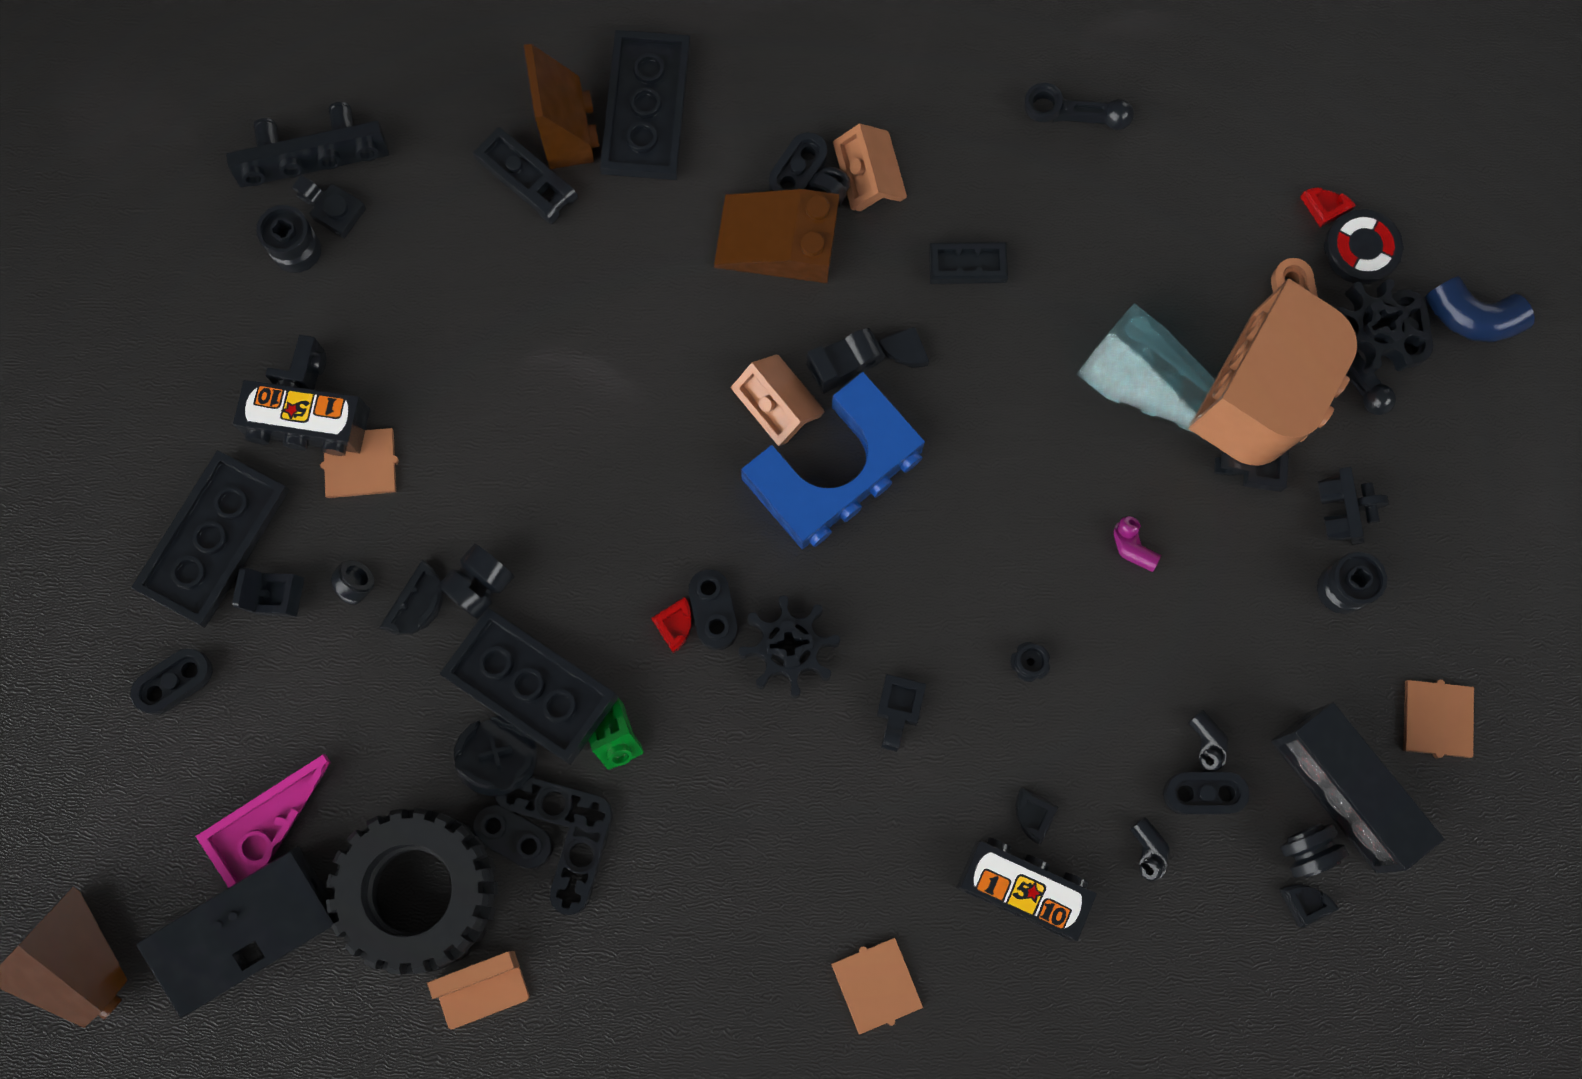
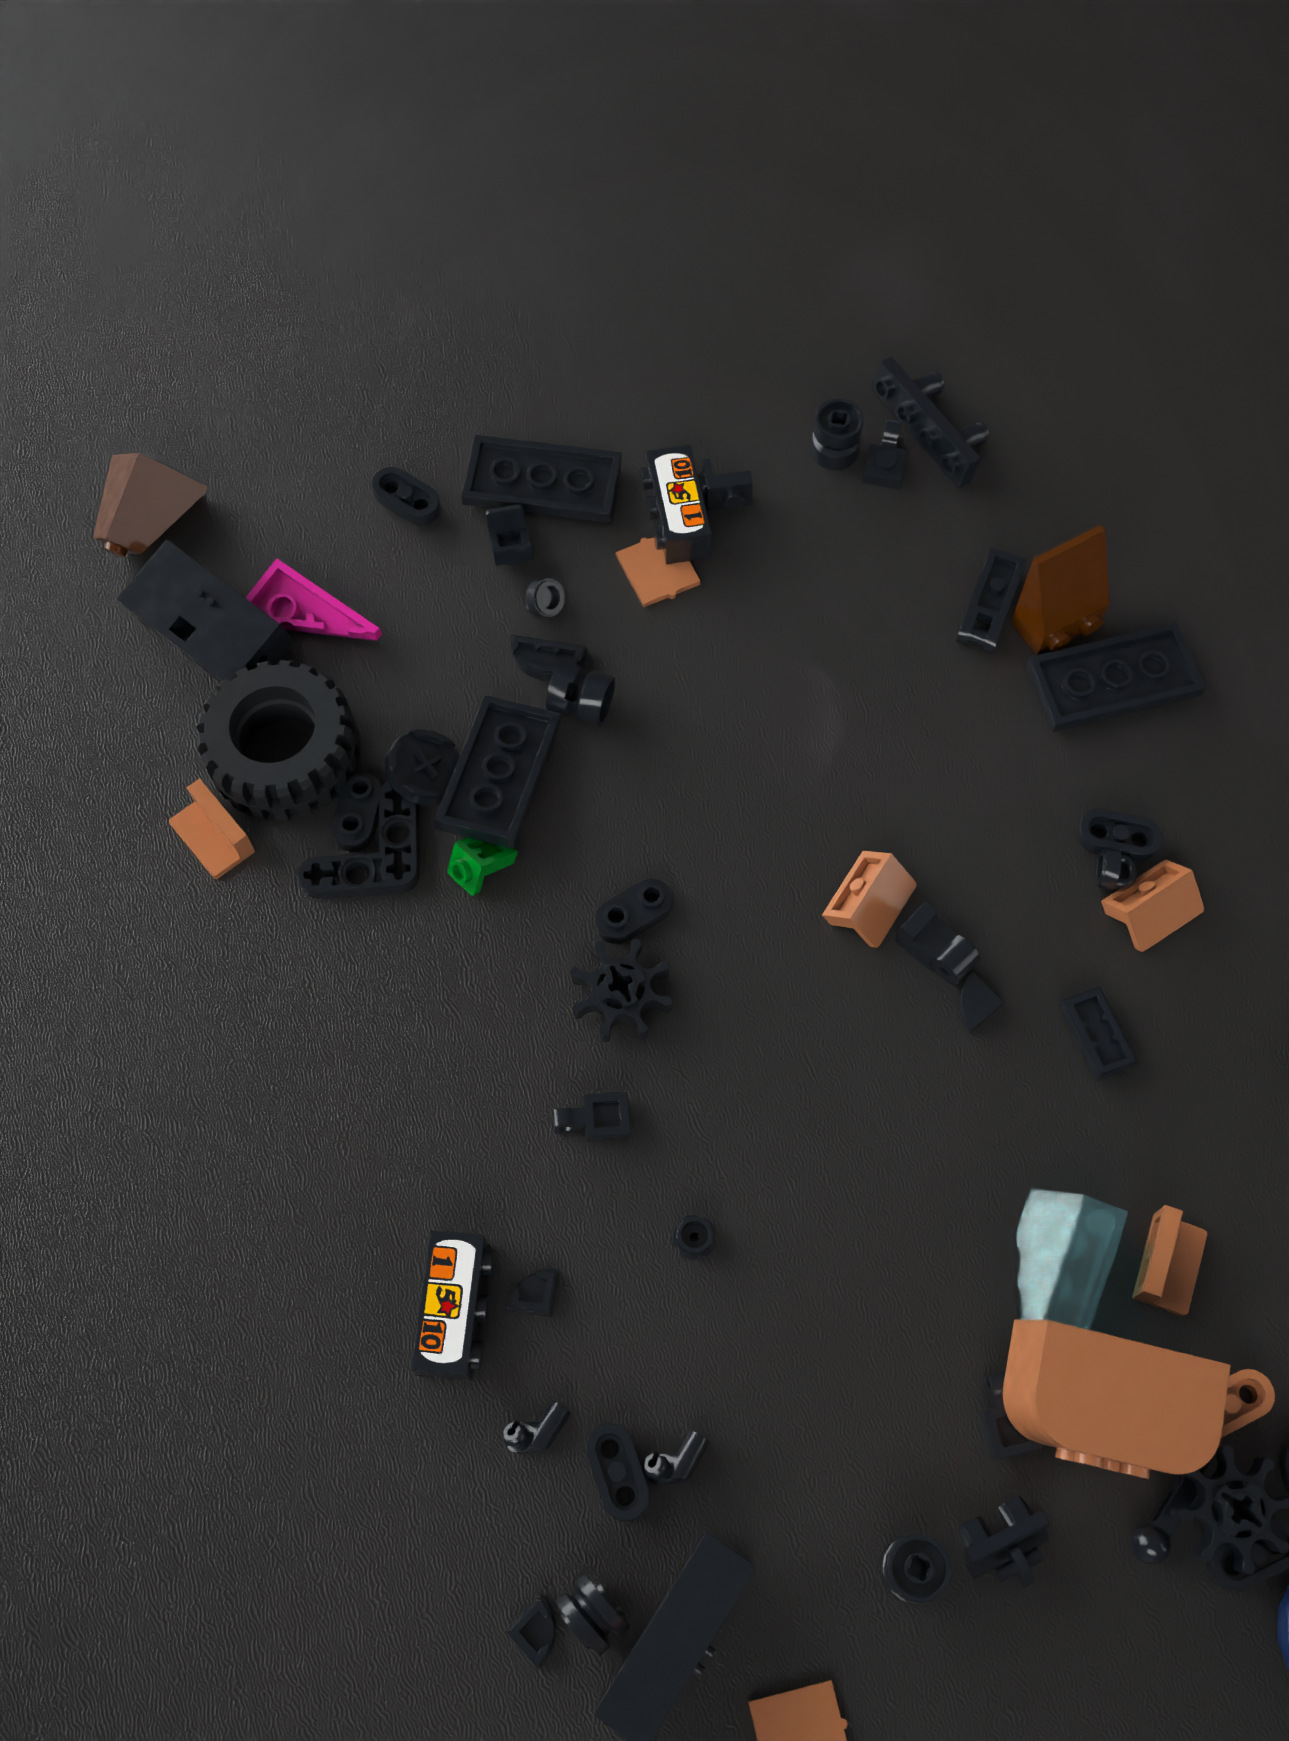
camera: 75 degrees right, 10 degrees down
(674, 624) = (606, 881): red tile -> none
(778, 233) = (1042, 844): reddish brown slope -> none
(810, 510) = (857, 1017): blue arch -> none
(877, 986) = (314, 1190): nougat piece -> none
(1130, 546) = (860, 1305): magenta arm -> none
(1171, 291) = (1170, 1262): none -> nougat panel

